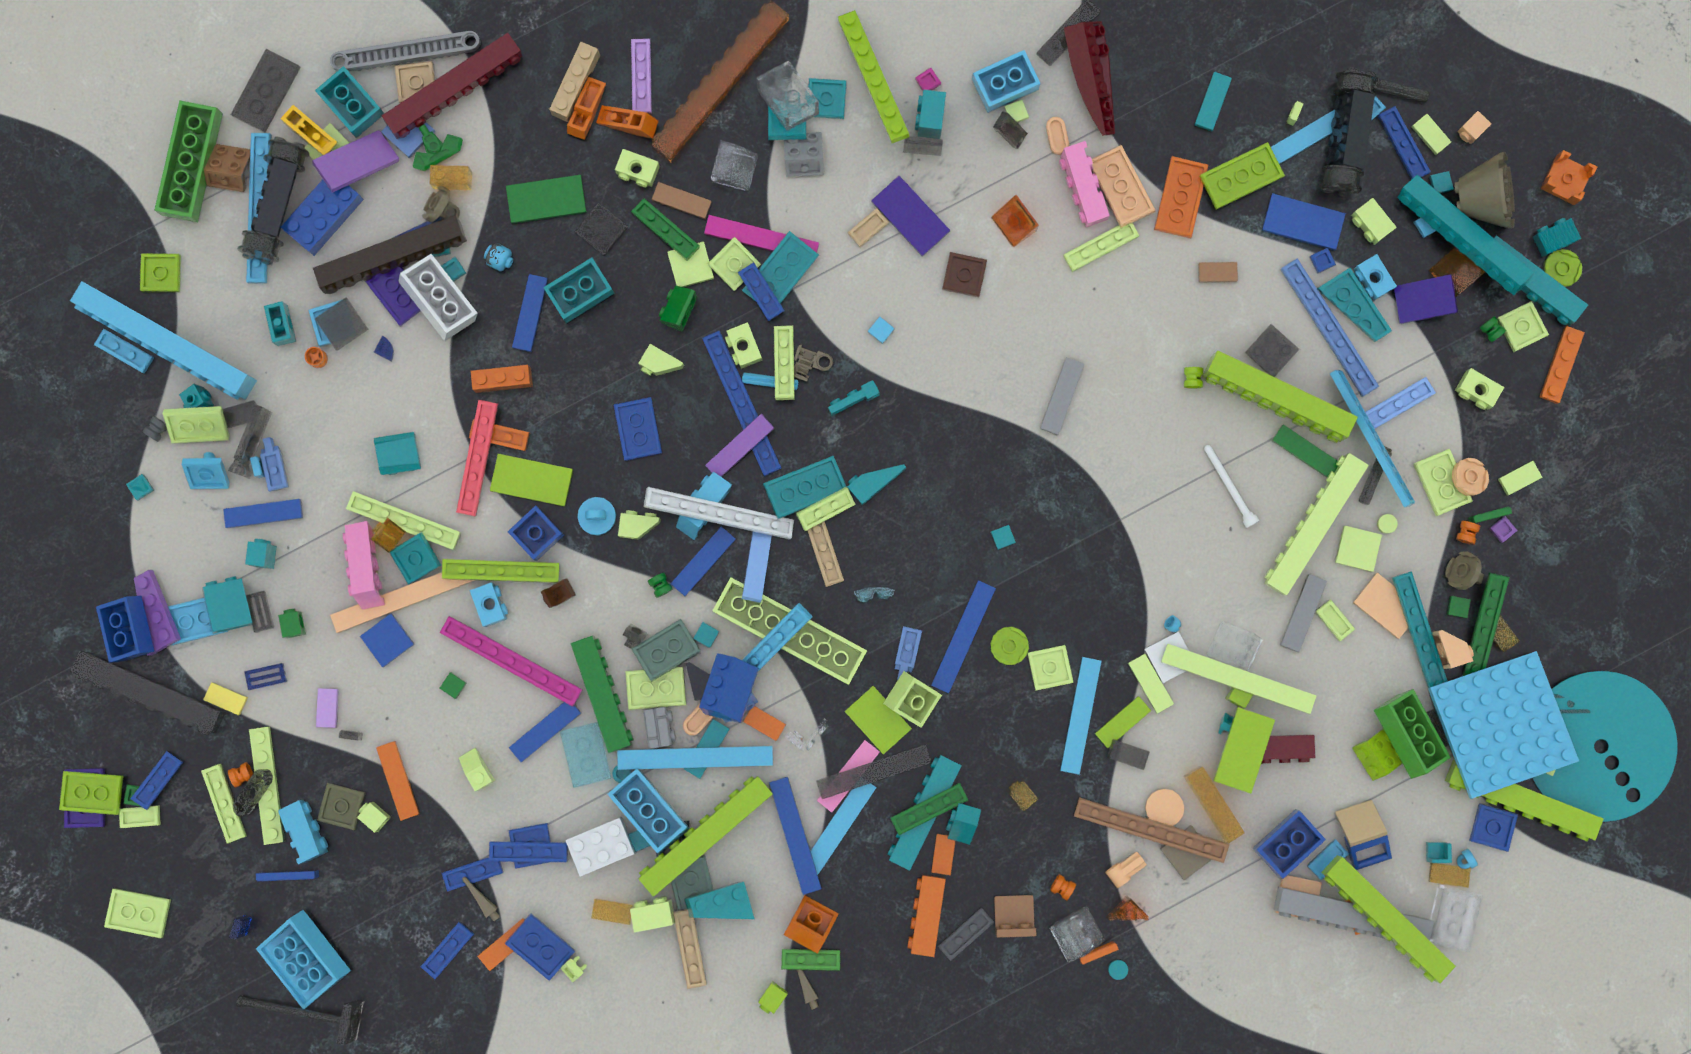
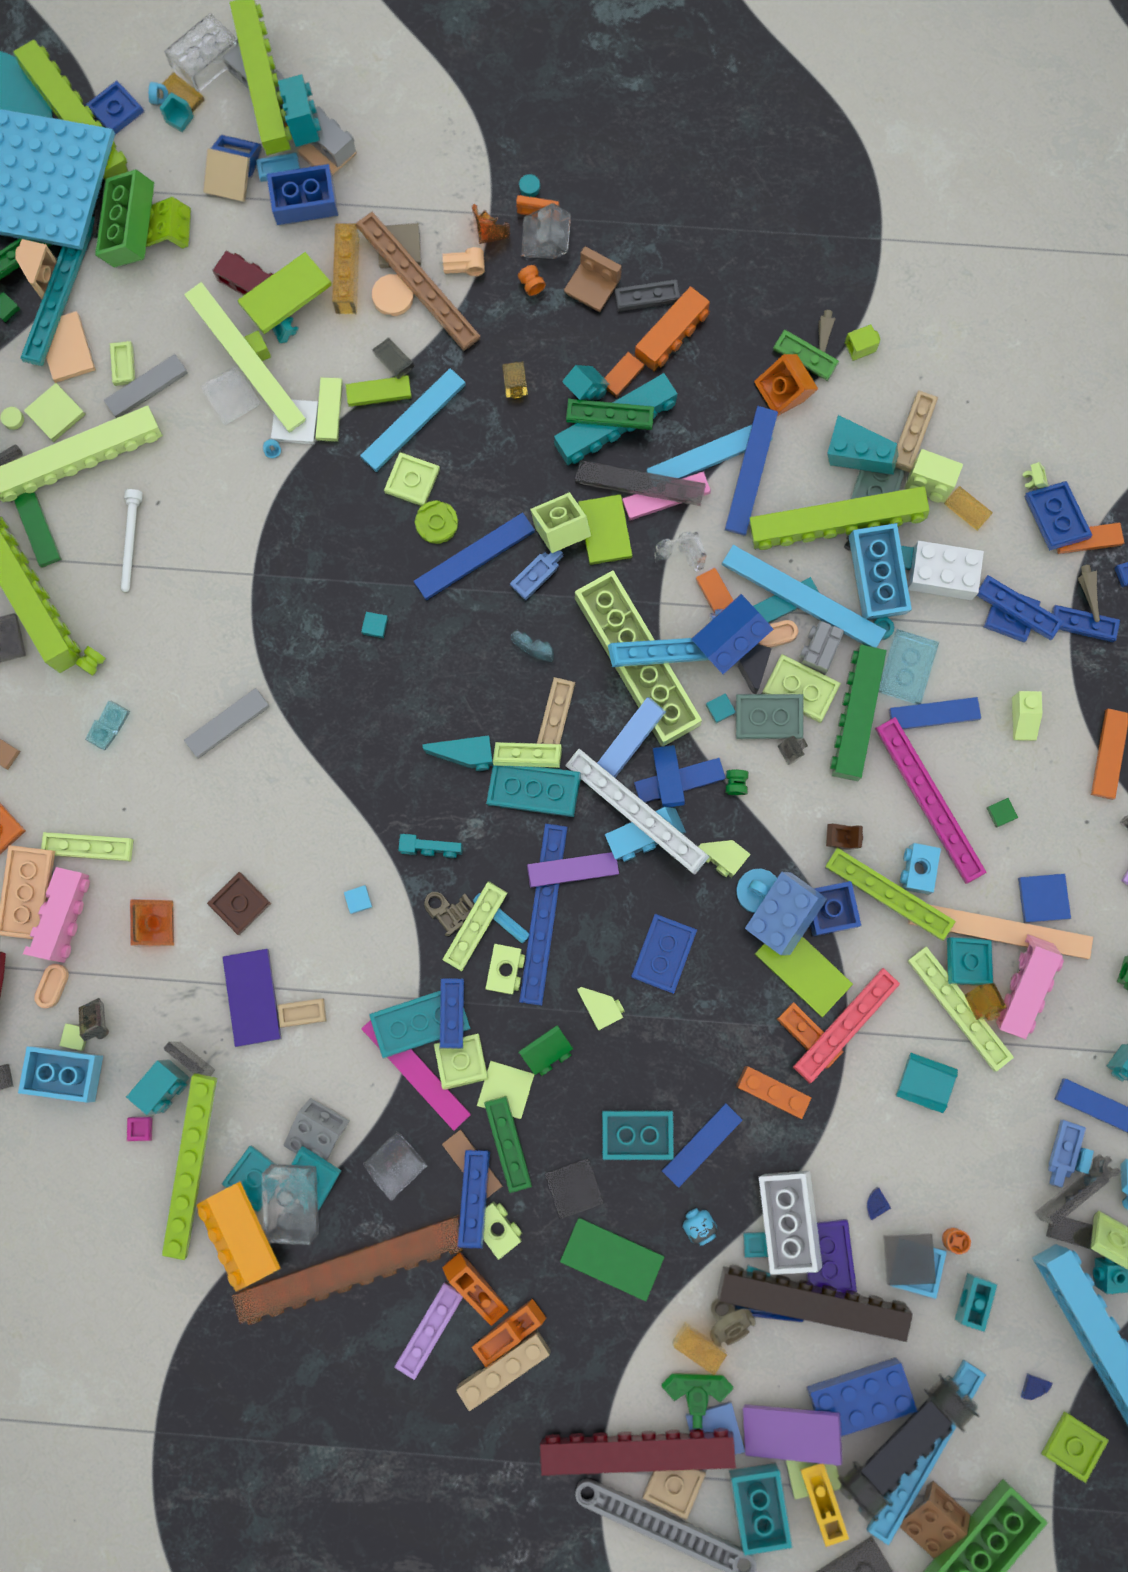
camera: 145 degrees left, 5 degrees down
(208, 294) = (1035, 1387): none -> clear blue tile
(566, 506) = (785, 913): none -> medium blue brick
(664, 177) = (473, 1199): none -> blue tile
(712, 557) = (668, 776): none -> blue tile
(810, 53) = (237, 1236): none -> light orange slope
(1147, 340) = (109, 724): none -> clear light blue slope
(1334, 906) = (299, 110): none -> teal wedge

